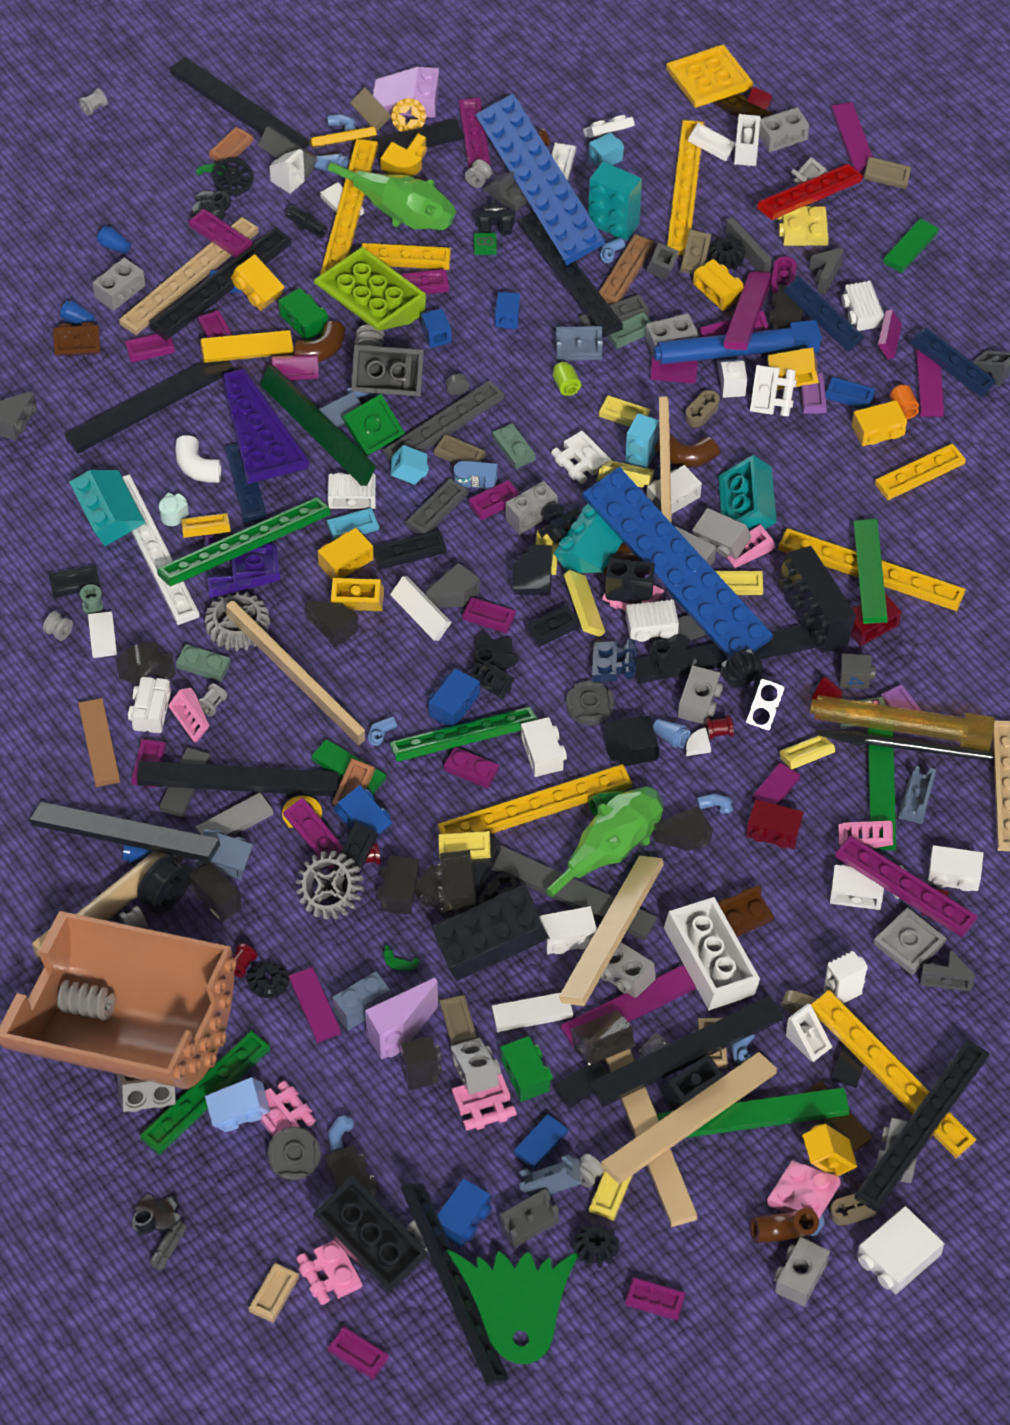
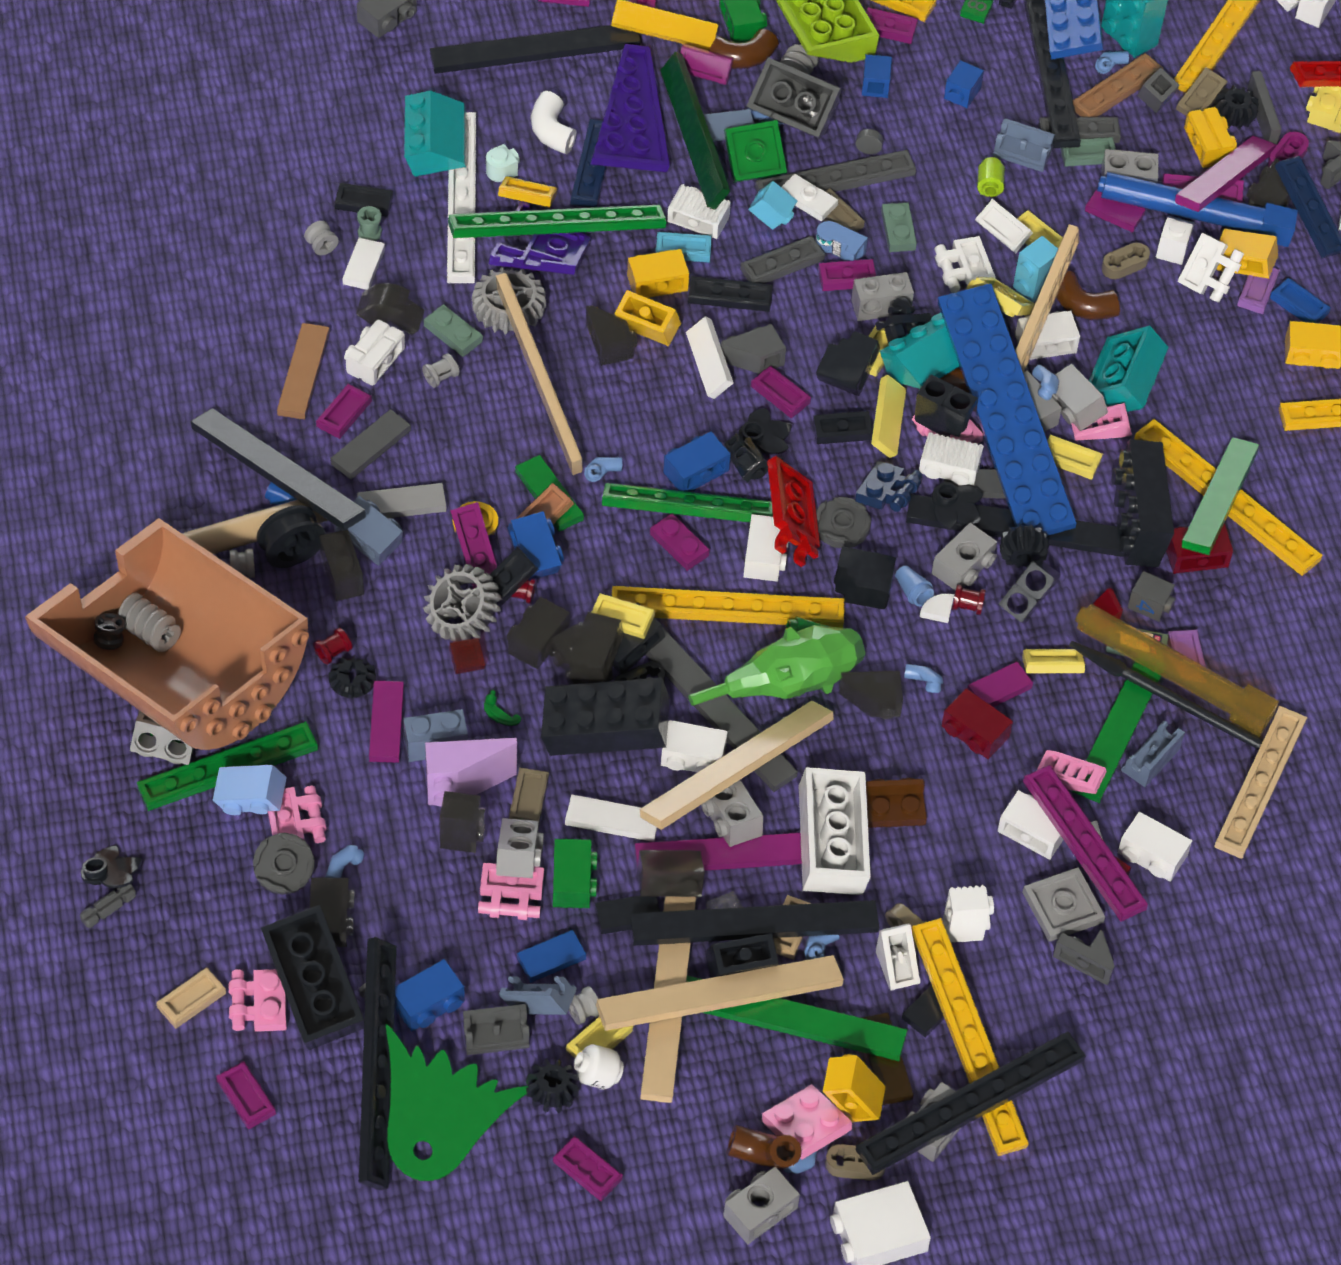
camera: 20 degrees right, 0 degrees up
(57, 1020) = (109, 631): none -> black wheel
(181, 704) = (410, 374): bright pink slope -> none
(237, 778) = (425, 459): black tile -> none
(352, 926) = (466, 656): none -> clear red plate
(435, 447) = (810, 198): none -> white plate
(552, 708) = (793, 510): none -> red tile
(596, 415) = (1004, 226): none -> white tile
(626, 1214) = (598, 1066): none -> white head
(698, 529) = (1048, 382): none -> medium blue arm

